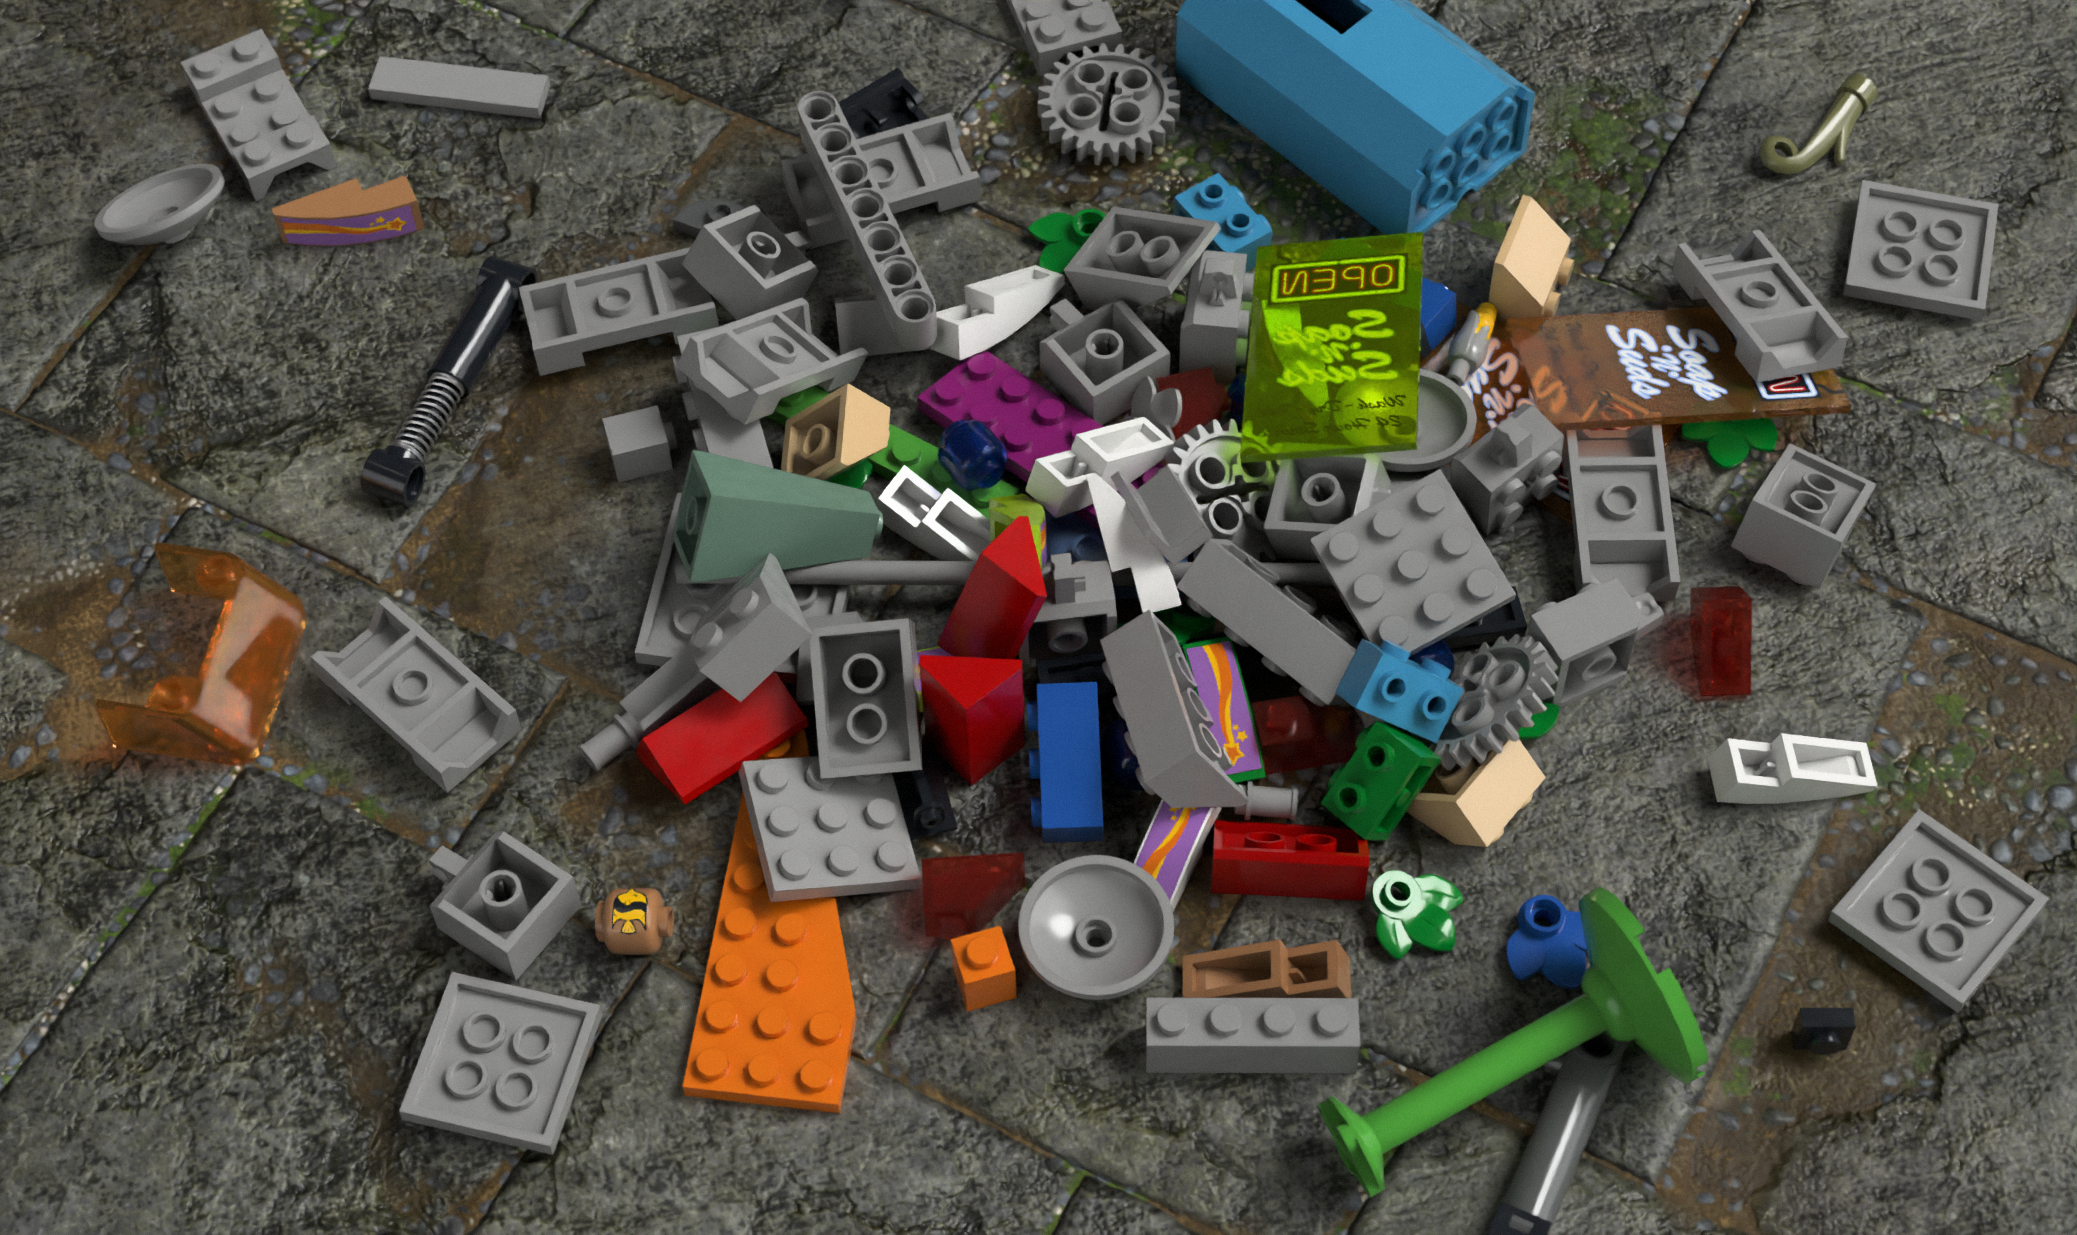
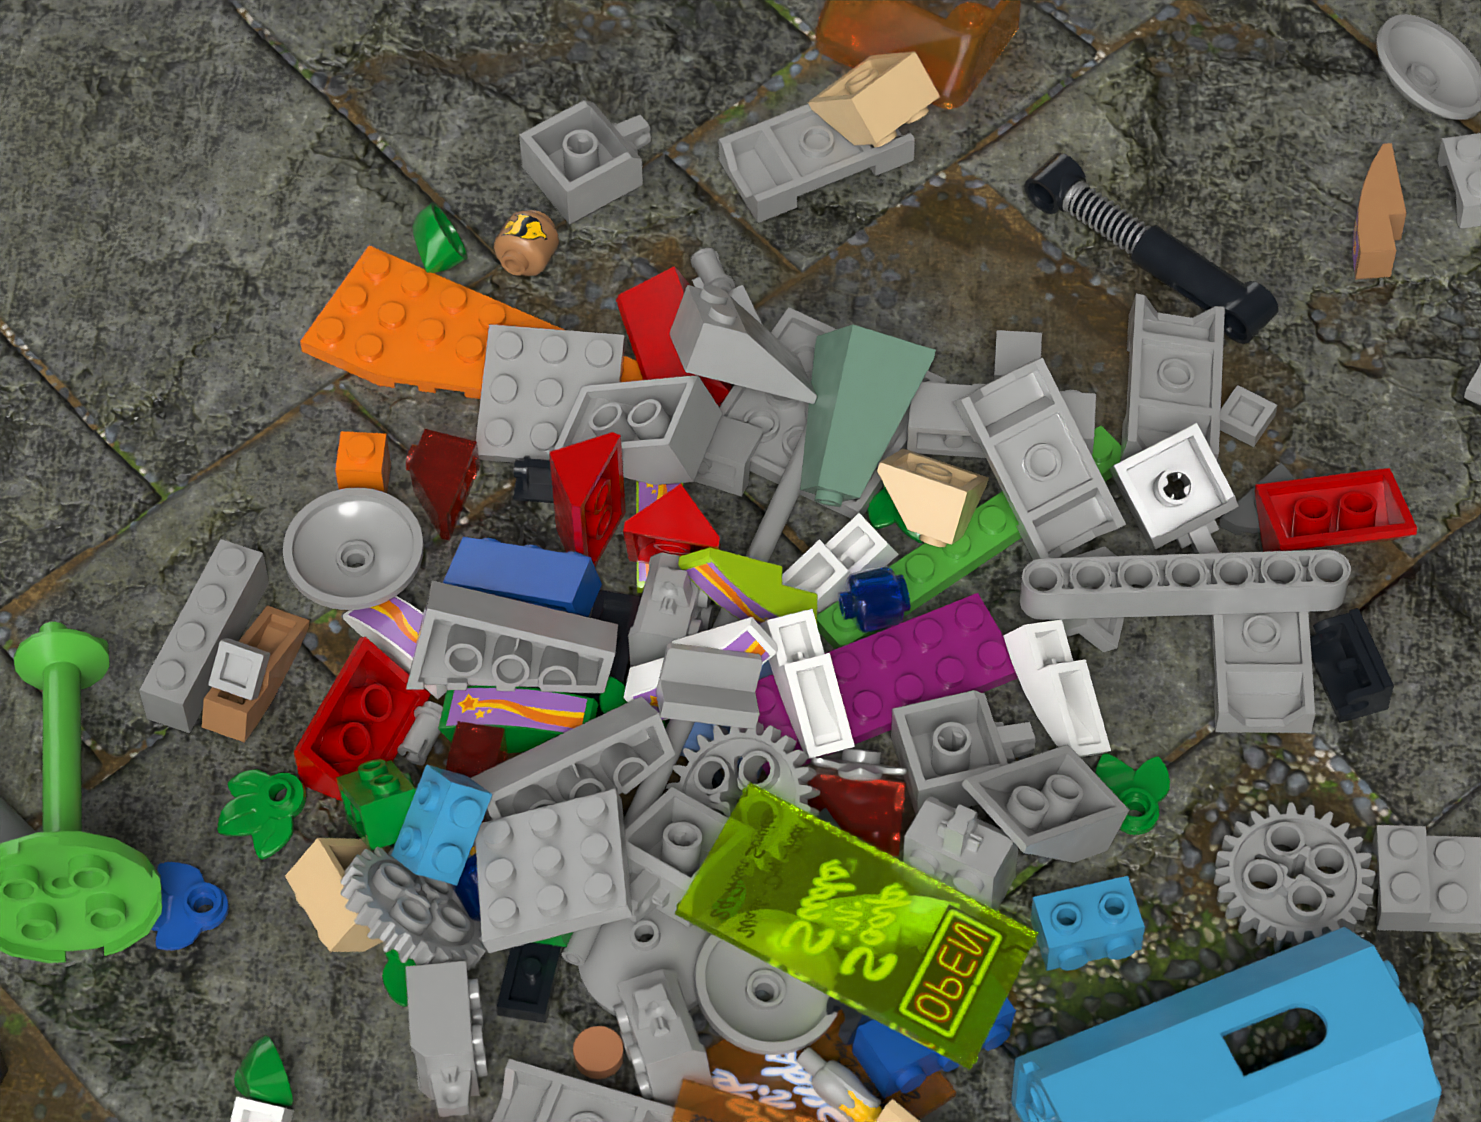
camera: 110 degrees right, 0 degrees up
(352, 631) = (877, 98): none -> tan slope
(501, 1063) = (448, 137): light grey plate -> none
(626, 248) = (1246, 415): none -> light grey plate
(658, 1015) = (437, 240): none -> green piece
(733, 150) = (1332, 511): none -> red slope
(1297, 957) = (239, 669): none -> plate
(1520, 546) = (598, 1052): none -> nougat tile
(1698, 781) = (263, 1075): none -> green piece

